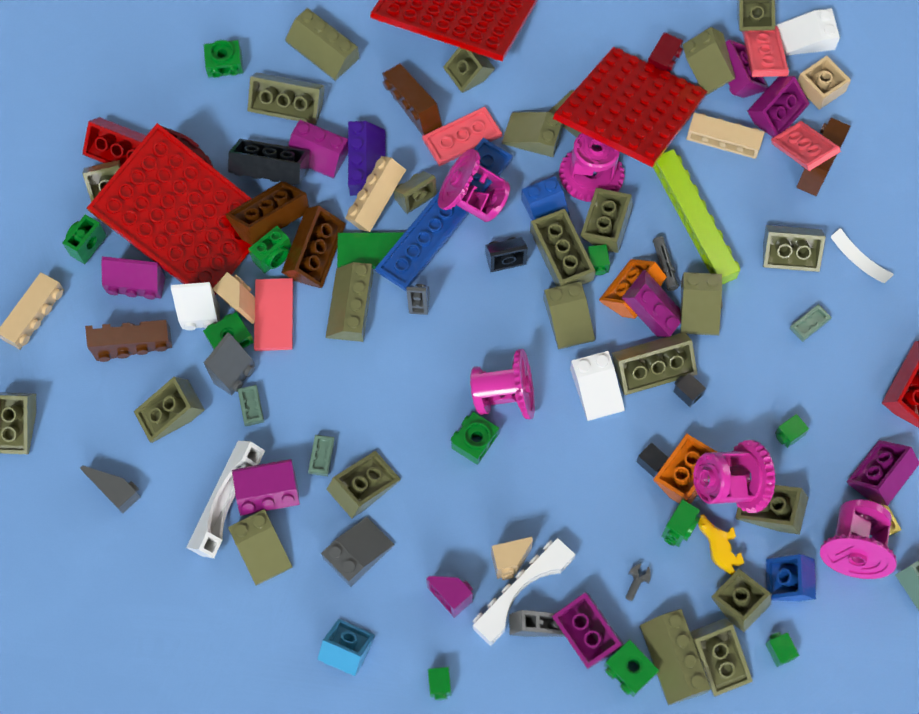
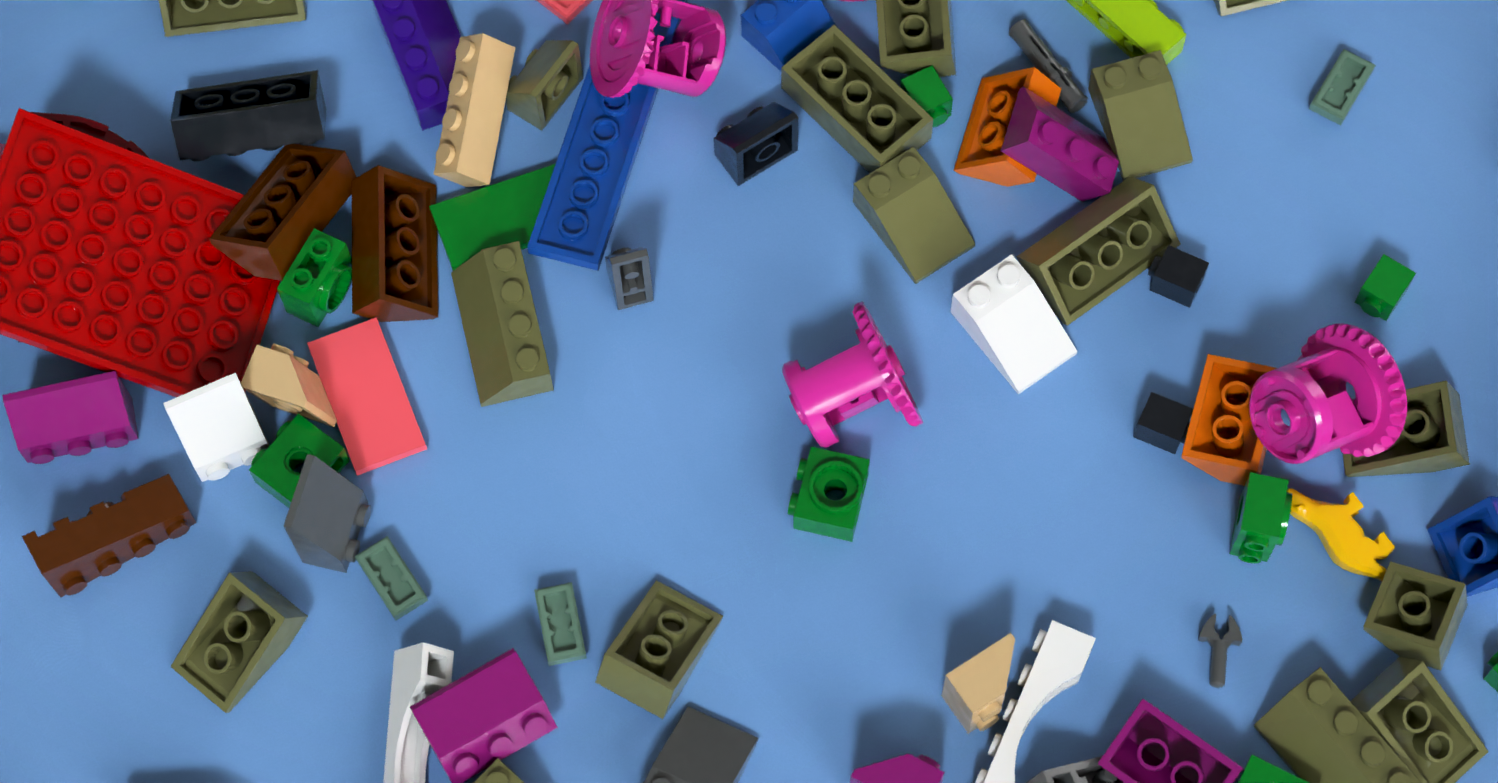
camera: 20 degrees left, 0 degrees up
(325, 147) = (347, 57): magenta slope -> none

